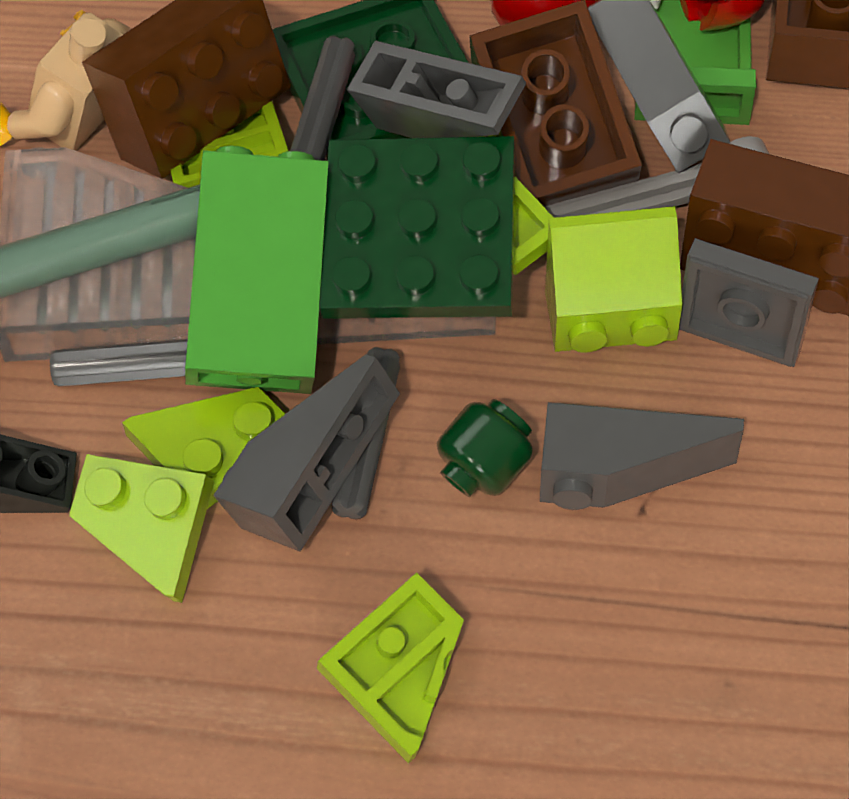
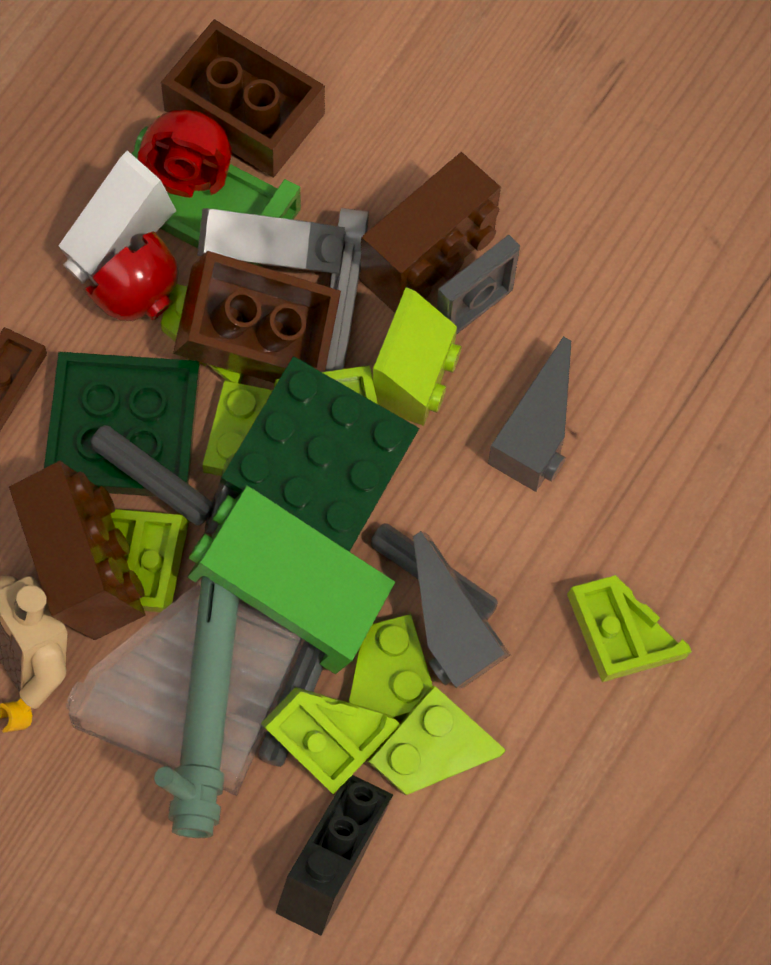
camera: 70 degrees left, 10 degrees up
(97, 396) = (328, 734): none -> lime wing
(432, 94) = (221, 387): dark grey slope -> none
(484, 448) = (493, 503): dark green head -> none

